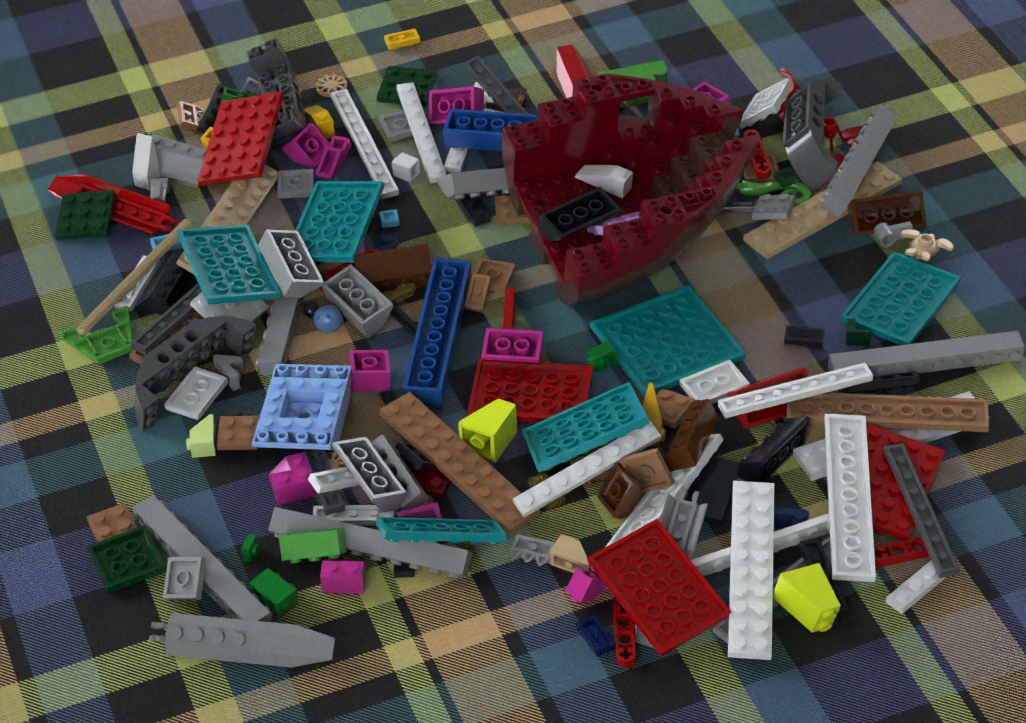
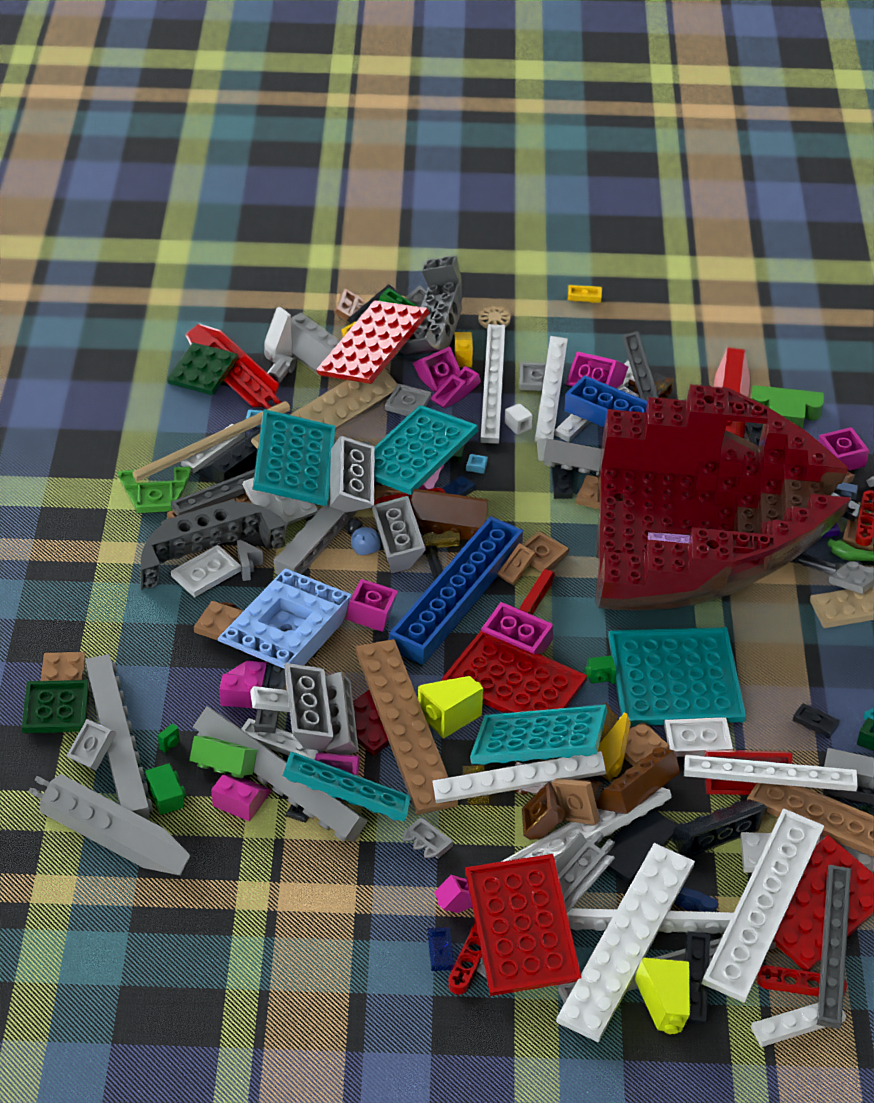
camera: 20 degrees right, 0 degrees up
(203, 438) = (186, 615): yellowish green slope -> none
(412, 454) = (365, 704): black plate -> none
(422, 79) = (578, 338): dark green plate -> none
(568, 554) = (457, 855): tan slope -> none
(577, 215) = (641, 519): black slope -> none
(608, 177) = (693, 493): white slope -> none

